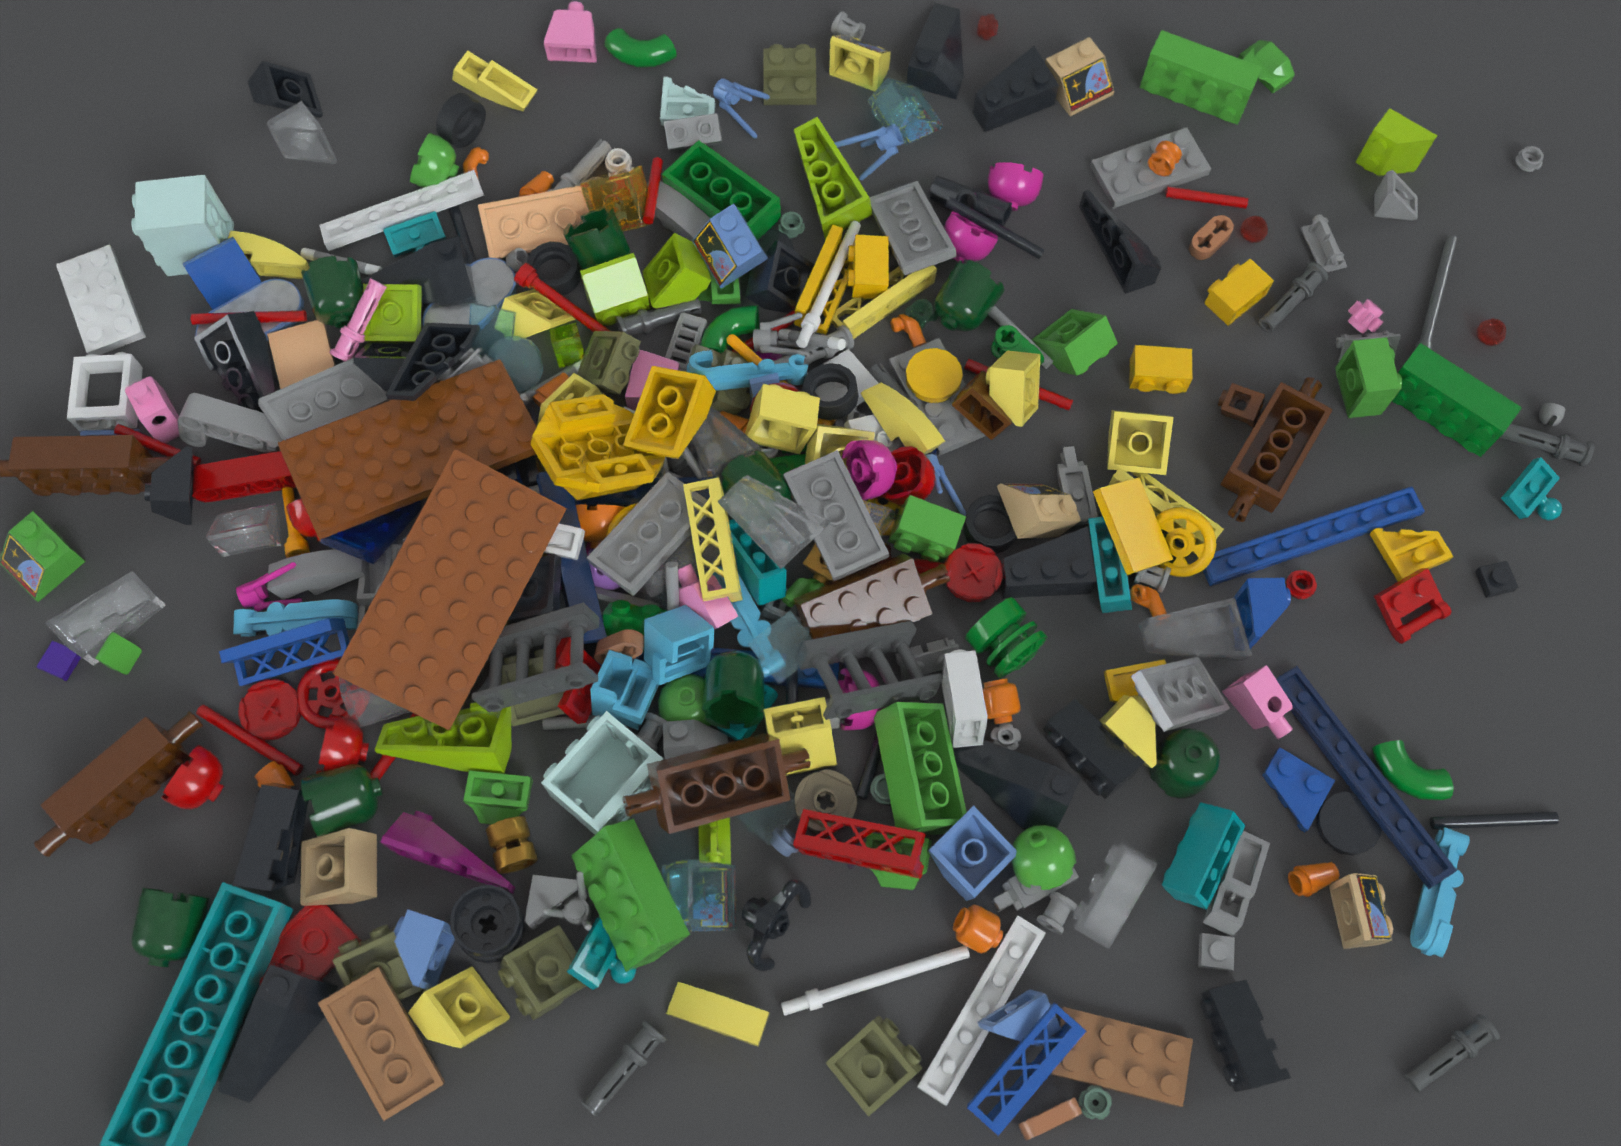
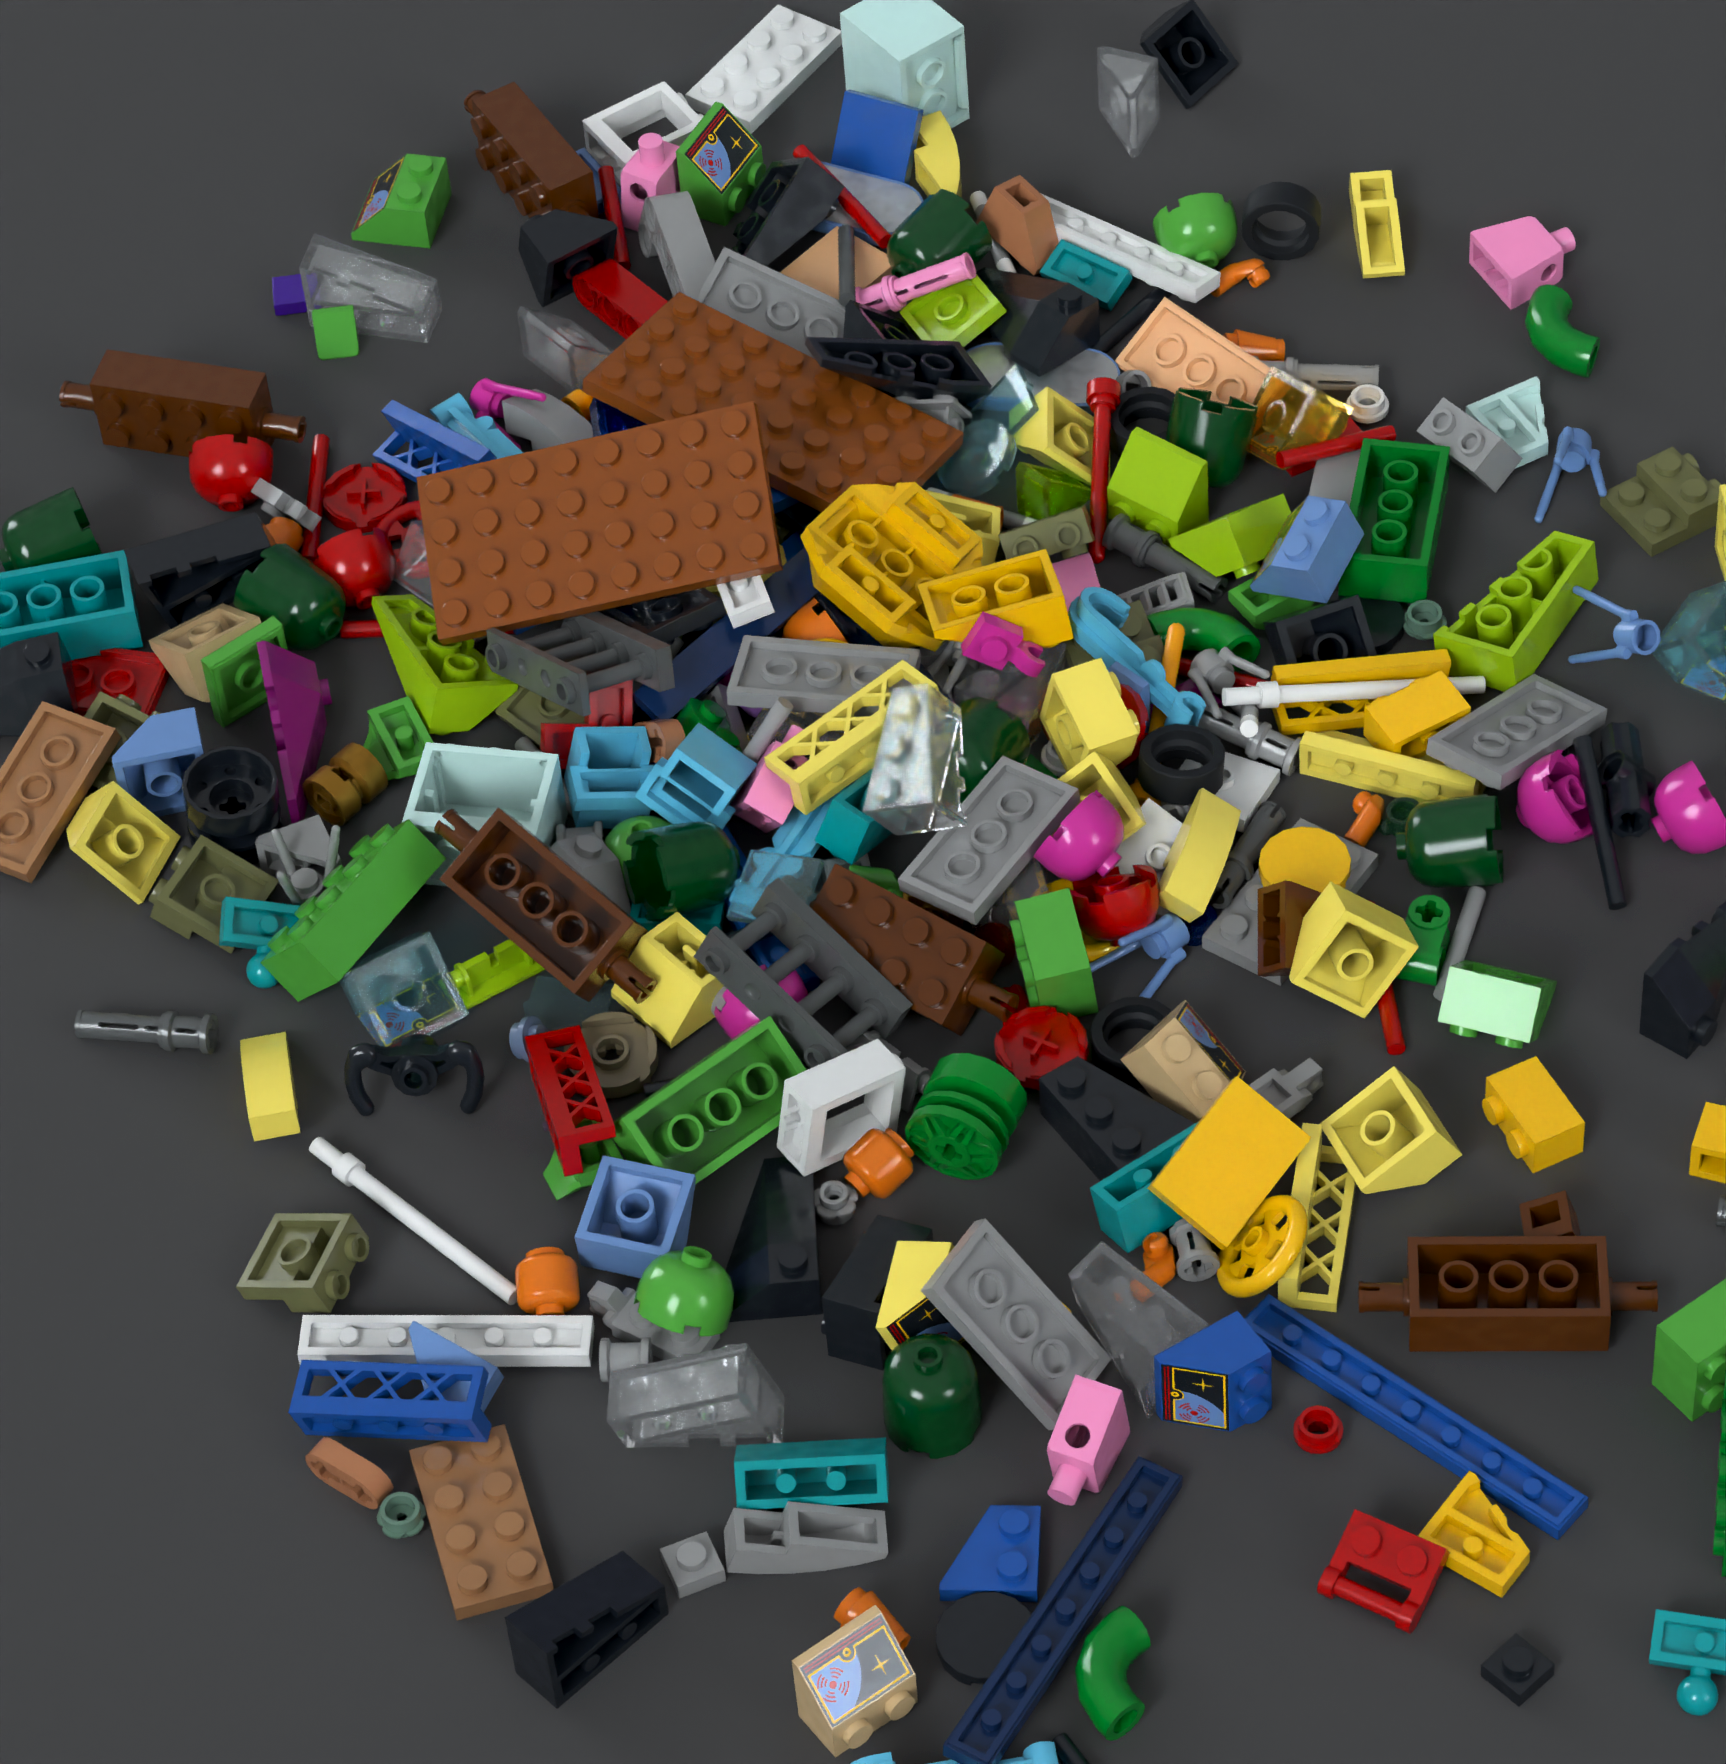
camera: 65 degrees right, 20 degrees down
(173, 366) = (719, 165): none -> slope
(244, 763) = (282, 505): none -> light grey plate
(311, 345) = (846, 264): none -> dark grey bar
(356, 240) = (1021, 223): none -> nougat slope
(381, 860) = (236, 675): none -> bright green tile
(702, 429) = (1000, 641): none -> dark pink plate

